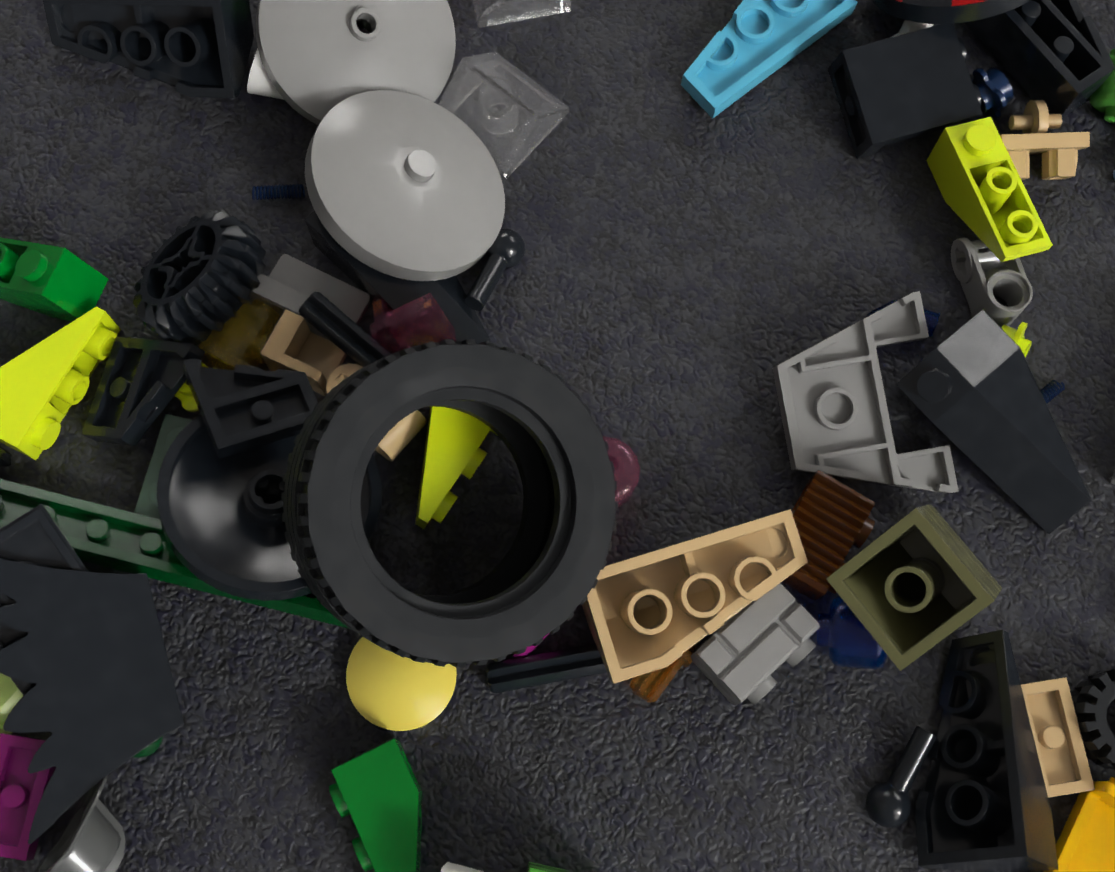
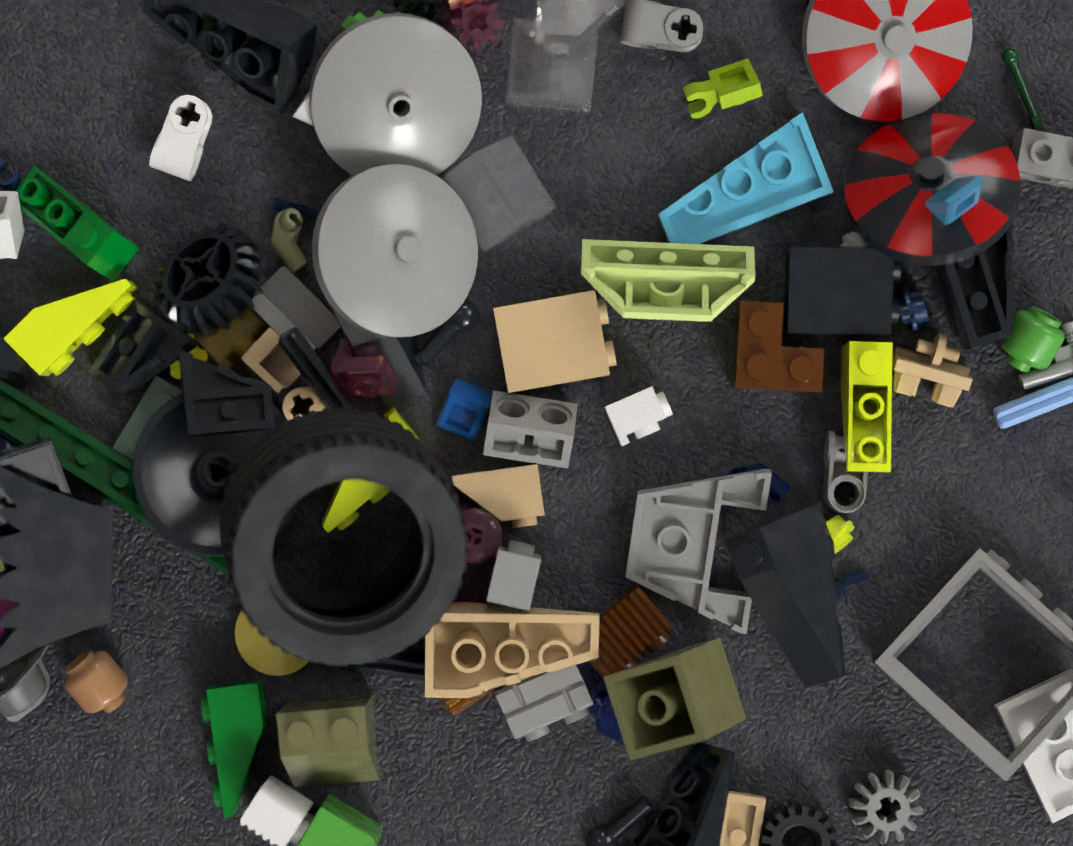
camera: 25 degrees right, 15 degrees up
(127, 146) = (178, 146): none -> white piece
(185, 812) = (96, 681): none -> medium nougat head
(276, 222) = (285, 238): none -> olive arm
(511, 786) = (329, 741): none -> olive slope
(545, 342) = (465, 409): none -> blue slope
(615, 235) = (554, 341): none -> tan panel
(627, 334) = (530, 429): none -> light grey brick
(634, 412) = (506, 493): none -> tan slope
(671, 500) = (514, 575): none -> light grey brick
(722, 126) = (667, 278): none -> yellowish green wedge
(738, 286) = (638, 414): none -> white brick
(854, 185) = (761, 359): none -> reddish brown brick

